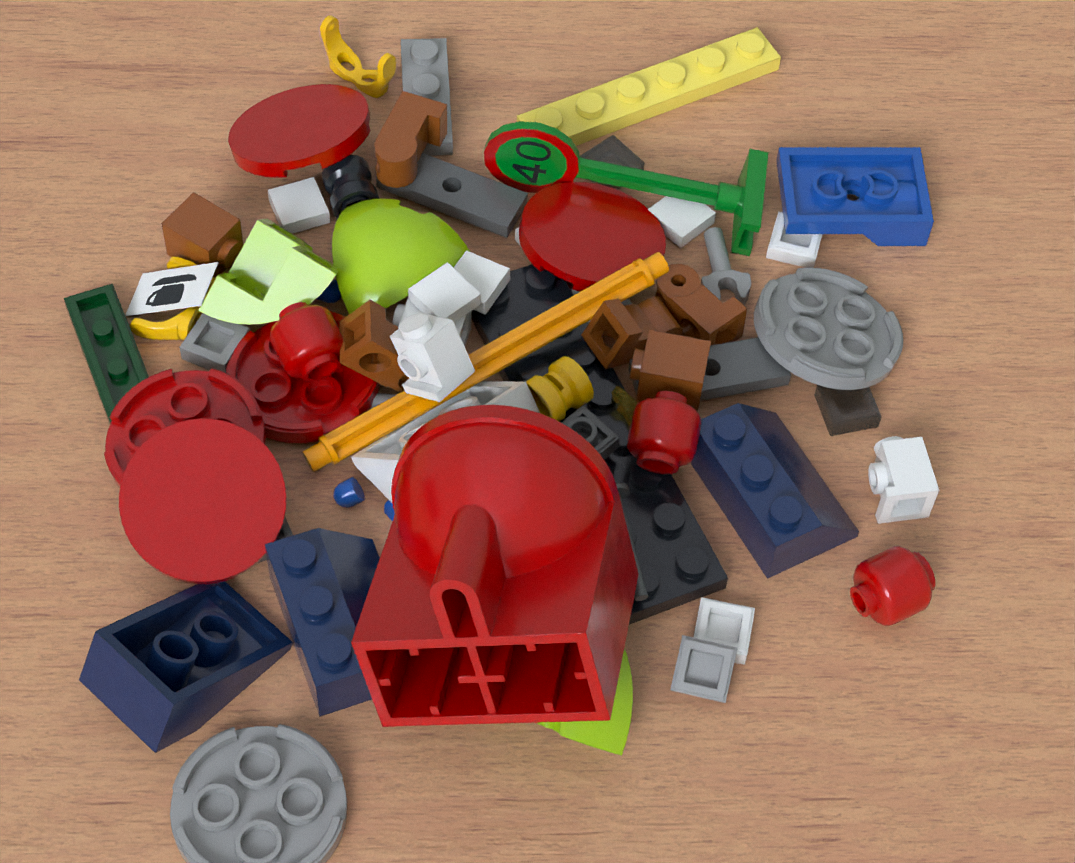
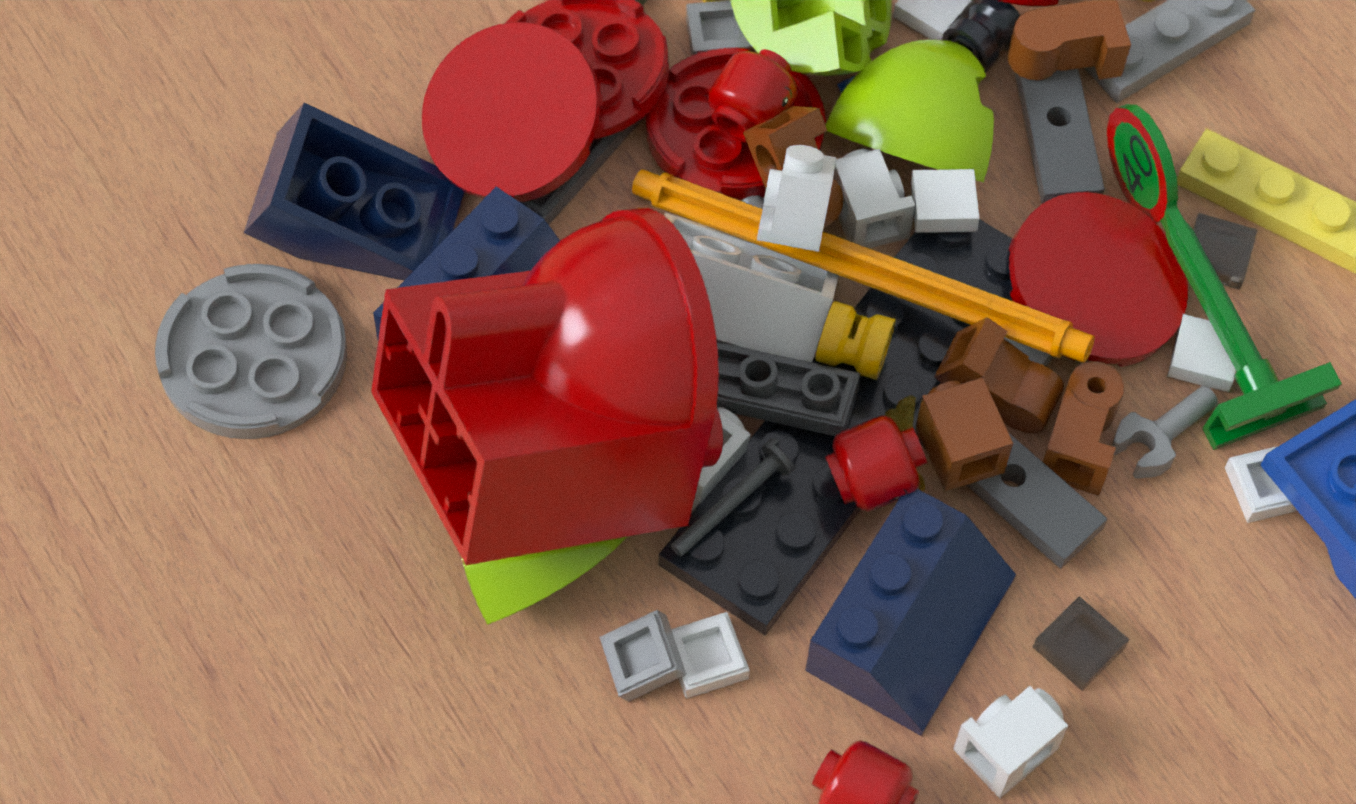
camera: 60 degrees right, 5 degrees up
(445, 294) = (892, 177): white tile -> none
(827, 329) = (1159, 569): light grey tile -> none

